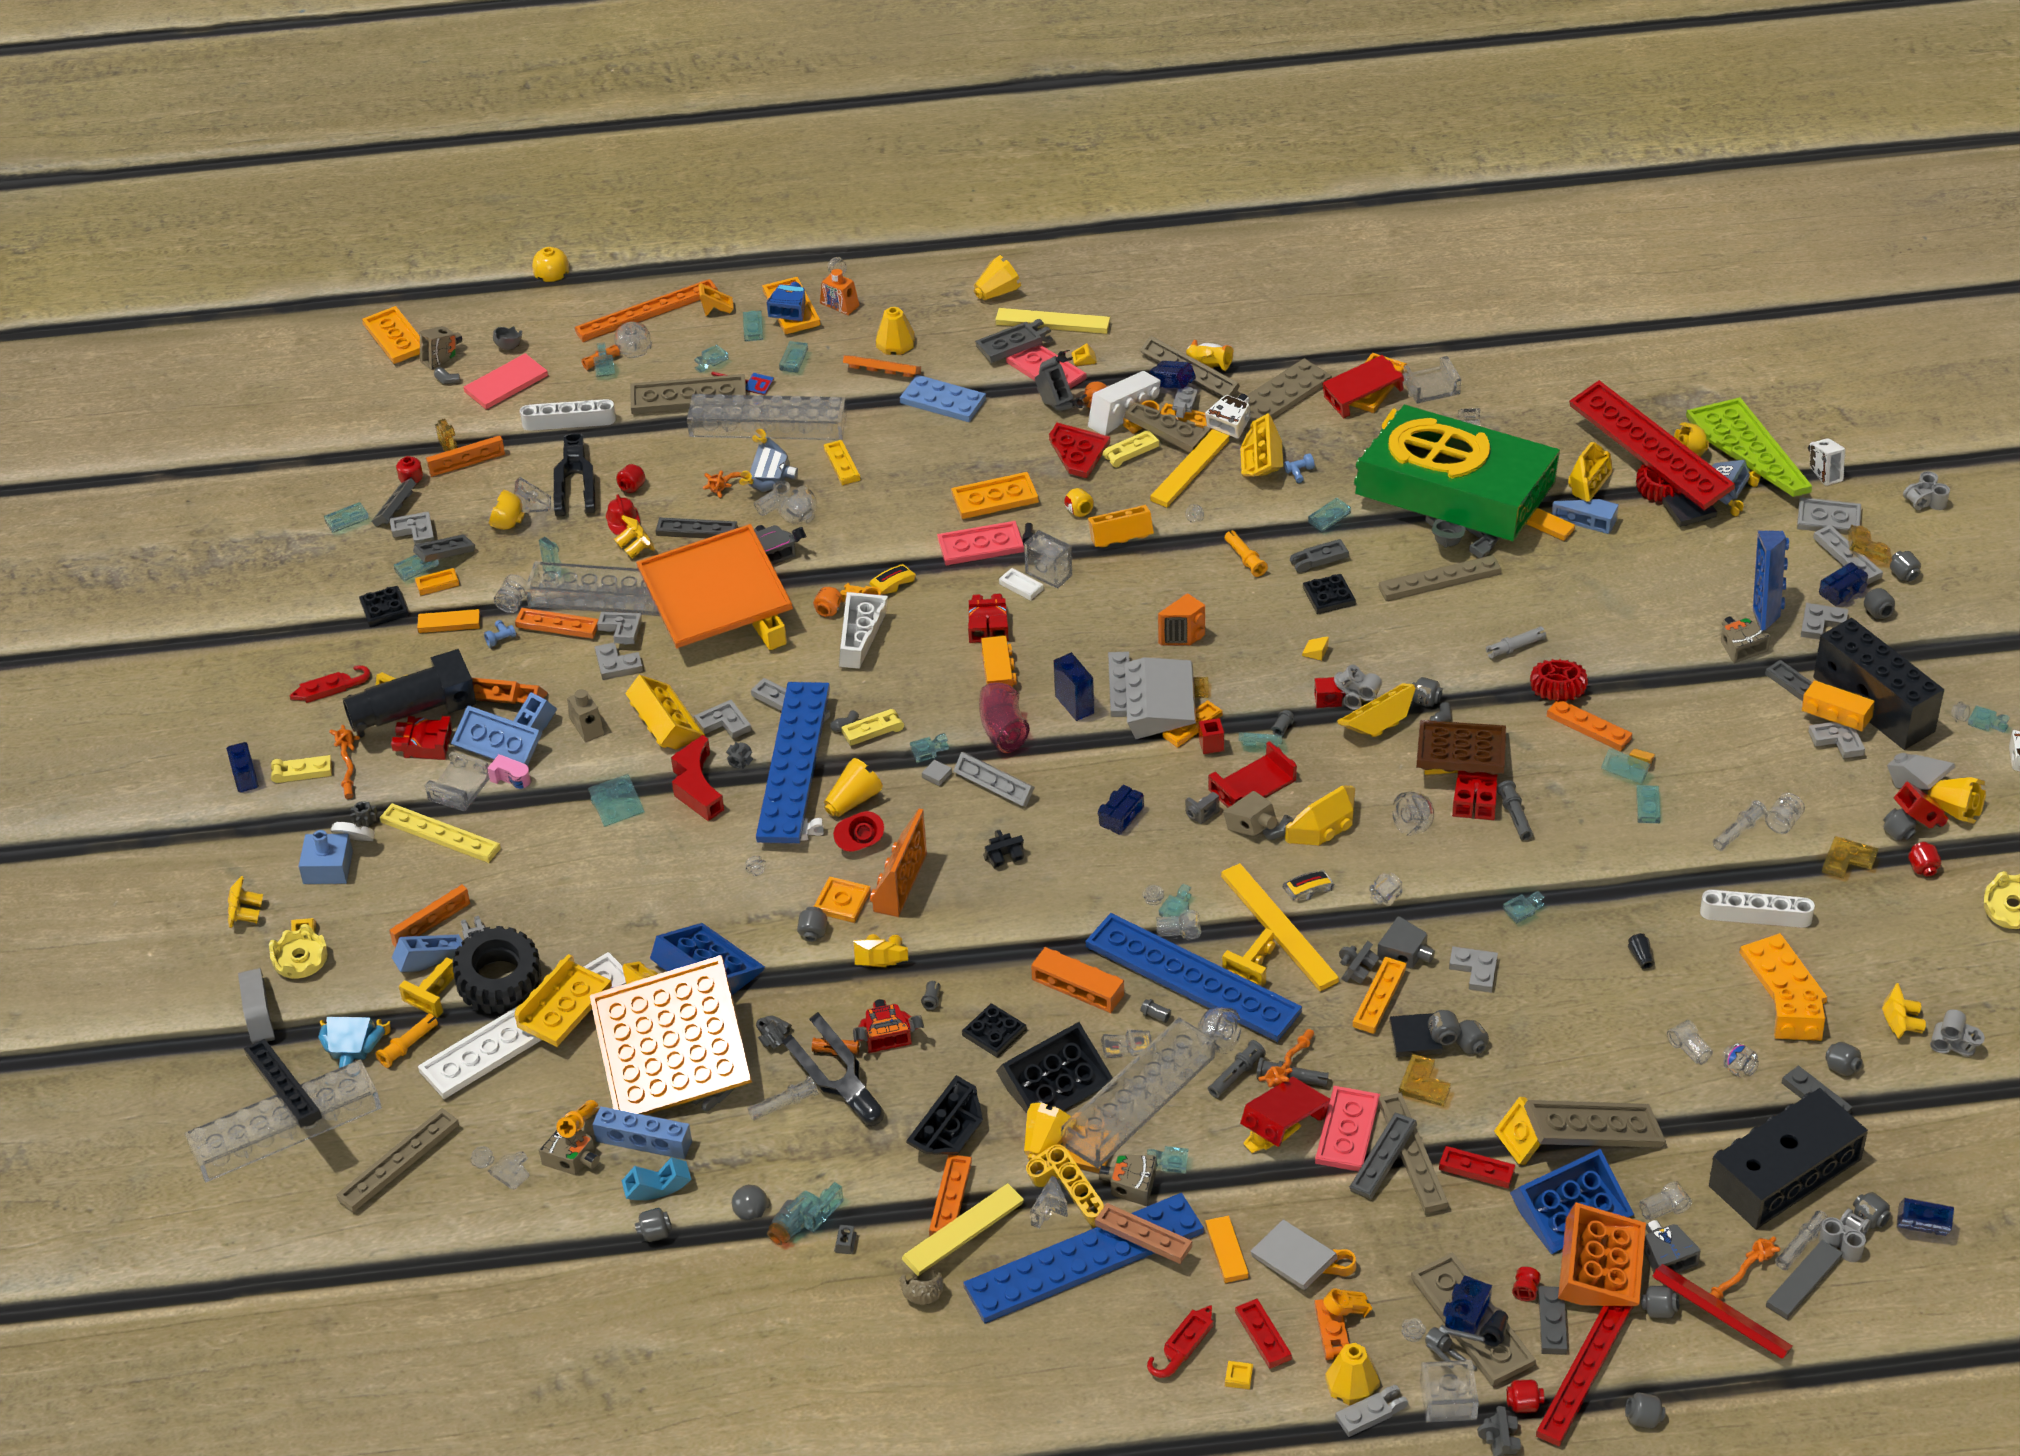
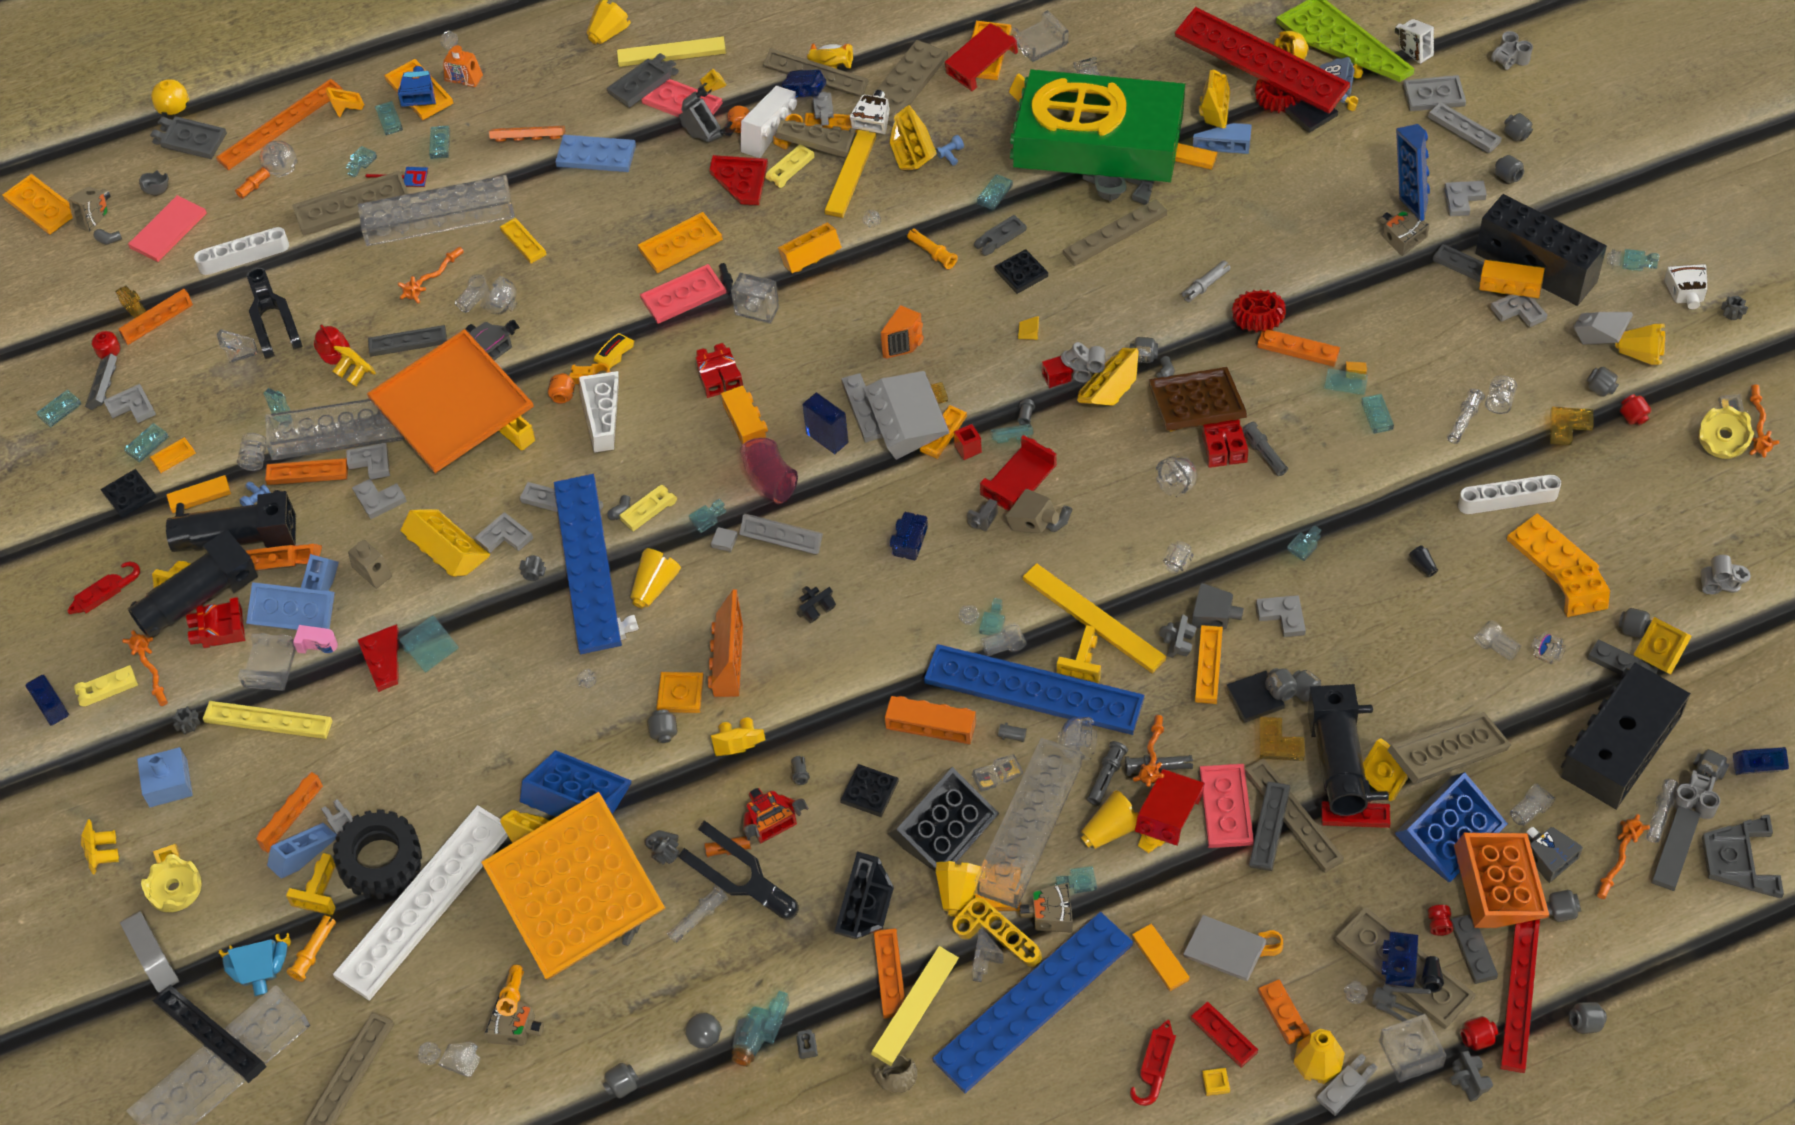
camera: 15 degrees left, 10 degrees up
(355, 833) = (182, 742): white tile -> none
(444, 548) = (169, 419): dark grey plate -> none
(503, 656) = (267, 522): none -> black piece
(507, 511) = (218, 366): yellow cylinder -> none
(556, 303) = (189, 136): none -> dark grey tile
(560, 1001) = (452, 871): yellow bracket -> none
(567, 802) = (381, 656): none -> red wing
(603, 363) = (258, 189): clear light blue plate -> none
(630, 478) = (326, 303): red head -> none
(642, 1132) = (576, 986): medium blue brick -> none
(649, 1184) = (602, 1037): dark azure brick -> none
(690, 783) = (495, 608): red arch -> none
(769, 465) = (457, 261): sand blue torso -> none
(858, 831) = (674, 620): red piece -> none
(895, 332) = (528, 97): yellow cone -> none
(1021, 584) = (735, 327): white tile -> none
(1078, 502) = (761, 232): yellow head -> none
(1143, 1233) = (1084, 965): nougat plate -> none
(1220, 1112) = (1110, 822): none -> yellow cone
(1307, 884) = (1105, 569): slope -> none
(1323, 818) = (1099, 501): yellow wedge -> none
(1348, 1301) = (1292, 982): light orange piece -> none
(1478, 1104) = (1333, 722): none -> black piece
(1722, 1311) = (1621, 901): red tile -> none
(1843, 584) = (1471, 157): clear blue brick -> none
(1858, 1302) = (1731, 858): none -> dark grey wing
(1861, 542) = (1474, 115): clear yellow plate -> none
(1861, 1083) = (1662, 645): none -> yellow tile
(1895, 1011) = (1664, 565): yellow connector -> none
(1920, 806) = (1624, 365): red torso -> none

